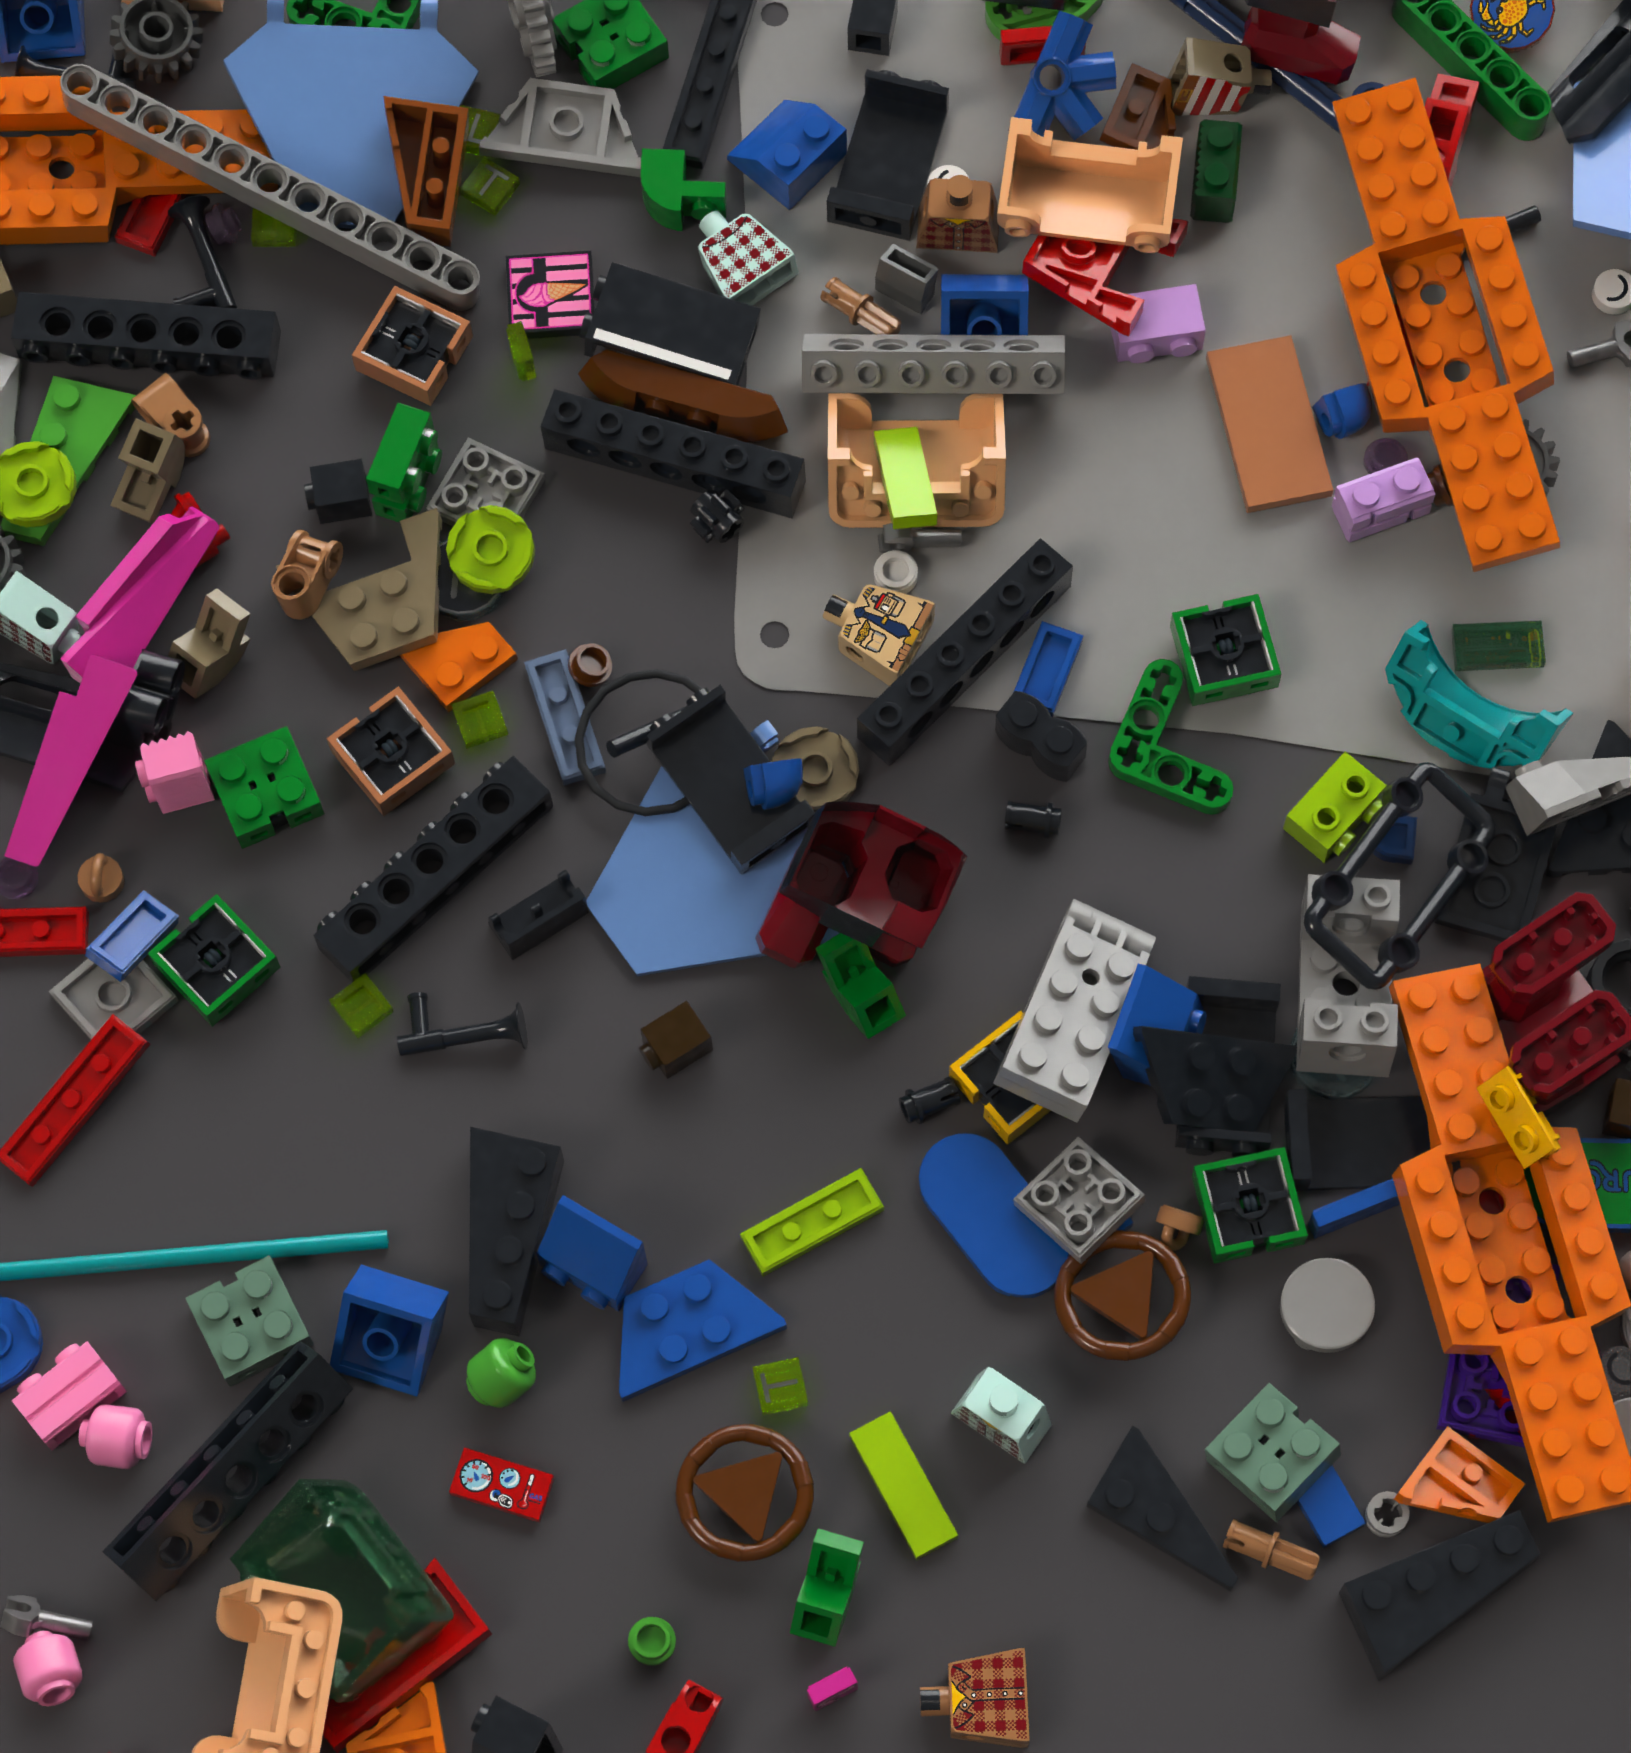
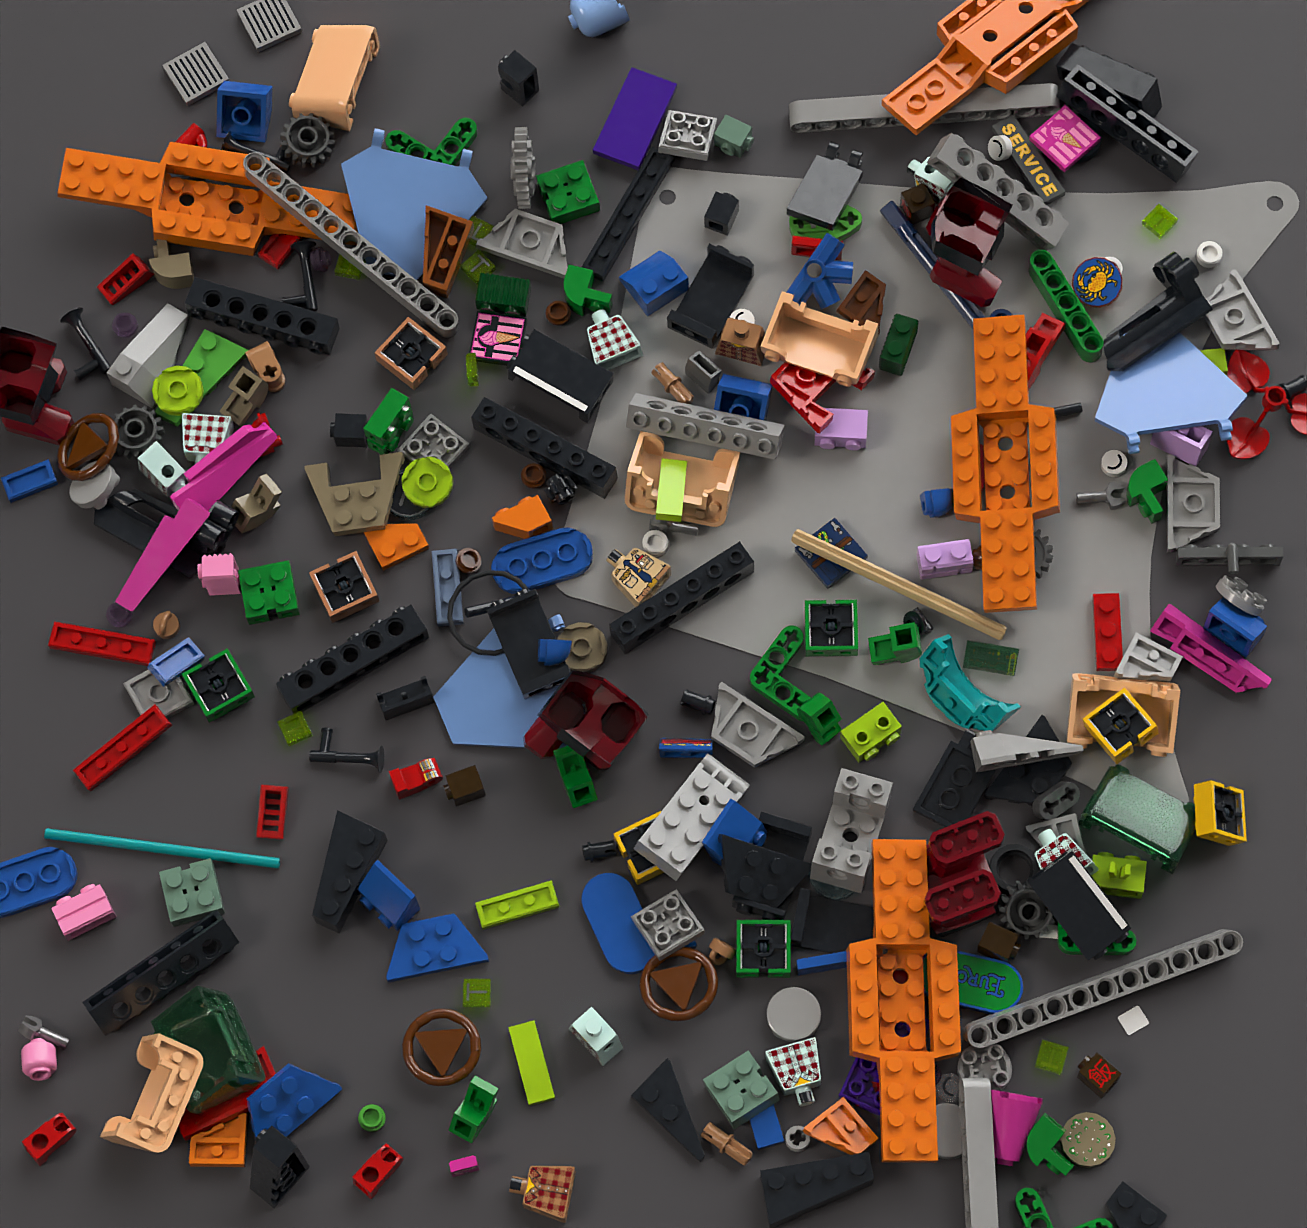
camera: 15 degrees right, 0 degrees up
(93, 546) = (204, 434): none -> torso
(116, 1436) = (104, 940): bright pink head -> none
(308, 566) = (321, 470): medium nougat piece -> none
(350, 1116) = (270, 789): none -> red slope
(388, 1329) = (267, 913): blue slope -> none
(479, 719) = (399, 578): clear neon green tile -> none
(500, 1645) = (289, 1099): none -> blue wing
(501, 1372) = (323, 951): bright green head -> none
(501, 1485) = (310, 1013): red tile -> none
(543, 220) = (503, 294): none -> dark green brick
(587, 1044) = (415, 777): none -> red leg
(641, 232) = (558, 313): none -> reddish brown plate
(665, 504) = (533, 476): none -> reddish brown plate
(669, 579) = (523, 520): none -> orange slope
(683, 396) = (567, 421): reddish brown brick -> none
(715, 638) = (543, 559): none -> blue tile
(1031, 731) = (717, 659): black brick -> none
(1031, 898) = (685, 747): none -> blue slope
(1049, 664) = (727, 617): blue tile -> none
(1131, 845) = (749, 729): none -> light grey wing
(1191, 529) = (824, 569): none -> dark blue tile
(1214, 78) = (911, 289): dark tan torso -> none
(1248, 799) = (820, 718): none -> green brick
(1269, 424) = (892, 500): nougat tile -> none
(1317, 556) = (898, 584): none -> tan axle
(1336, 889) = (851, 779): black bar -> none
(1348, 655) = (900, 645): none -> green brick
(1356, 1396) = (796, 1069): none -> torso
(1362, 614) = (919, 618): none -> black plate
(1383, 454) = (953, 532): clear purple plate -> none
(1399, 842) = (901, 757): dark blue tile -> none
(1513, 1111) = (919, 923): yellow hinge -> none

